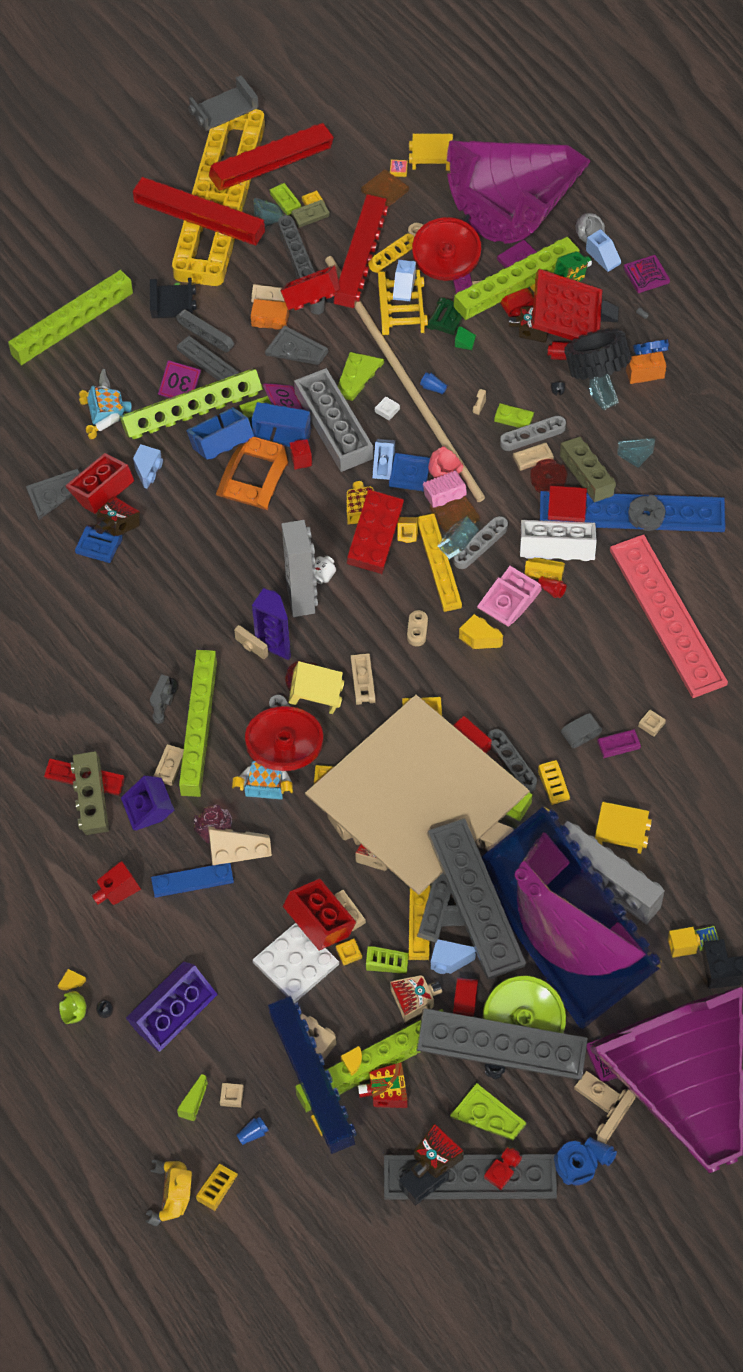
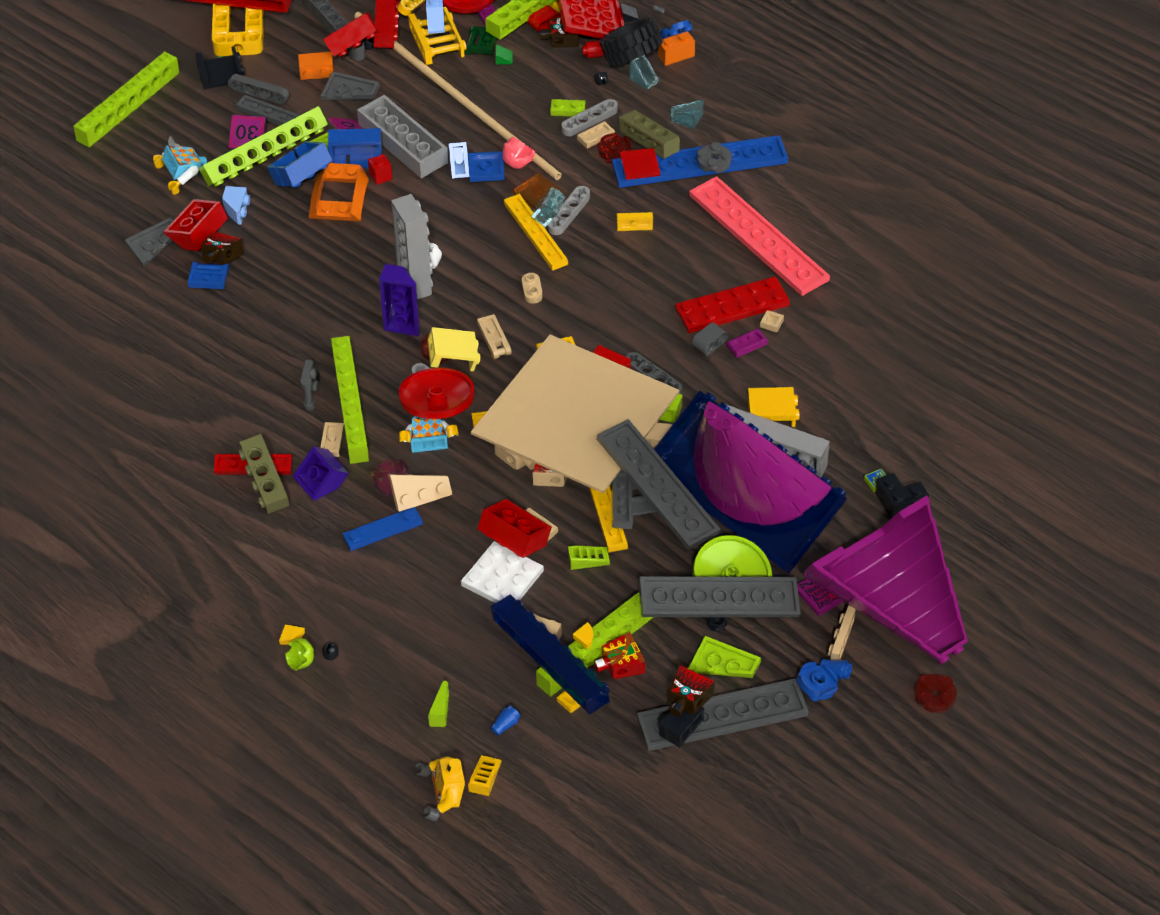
camera: 15 degrees left, 10 degrees down
(116, 885) = (312, 543): red torso -> none
(172, 1006) = (395, 633): dark purple slope -> none
(231, 1095) = (476, 695): tan plate -> none
(251, 642) = (379, 326): tan plate -> none
(266, 292) = (310, 47): tan plate -> none
(348, 952) = (549, 557): yellow tile -> none
(355, 501) = (450, 199): yellow torso -> none
(356, 373) = (413, 97): lime wing -> none
(375, 531) = (470, 215): red brick -> none
(387, 408) = (449, 120): white plate -> none
(408, 529) = (499, 210): yellow brick -> none
(413, 996) = (622, 579): torso -> none
(432, 383) = (483, 93): blue cone -> none
(444, 489) = (523, 172): bright pink brick -> none
(451, 956) = (648, 540): light blue slope -> none
(465, 996) = (671, 565): red beam -> none
(480, 402) = (533, 101): tan tile -> none
(480, 634) = (592, 280): yellow slope -> none
(500, 1172) = (751, 702): red plate -> none
(510, 596) = (610, 245): bright pink slope -> none
(548, 771) = (692, 374): yellow slope -> none
(552, 586) = (648, 232): red cone -> none
(558, 540) = (640, 194): white slope -> none
(597, 1092) = (817, 622): tan plate -> none
(617, 693) = (732, 304): none -> red plate
(683, 942) = (857, 485): yellow brick -> none
(683, 1209) = (938, 683): none -> clear red plate

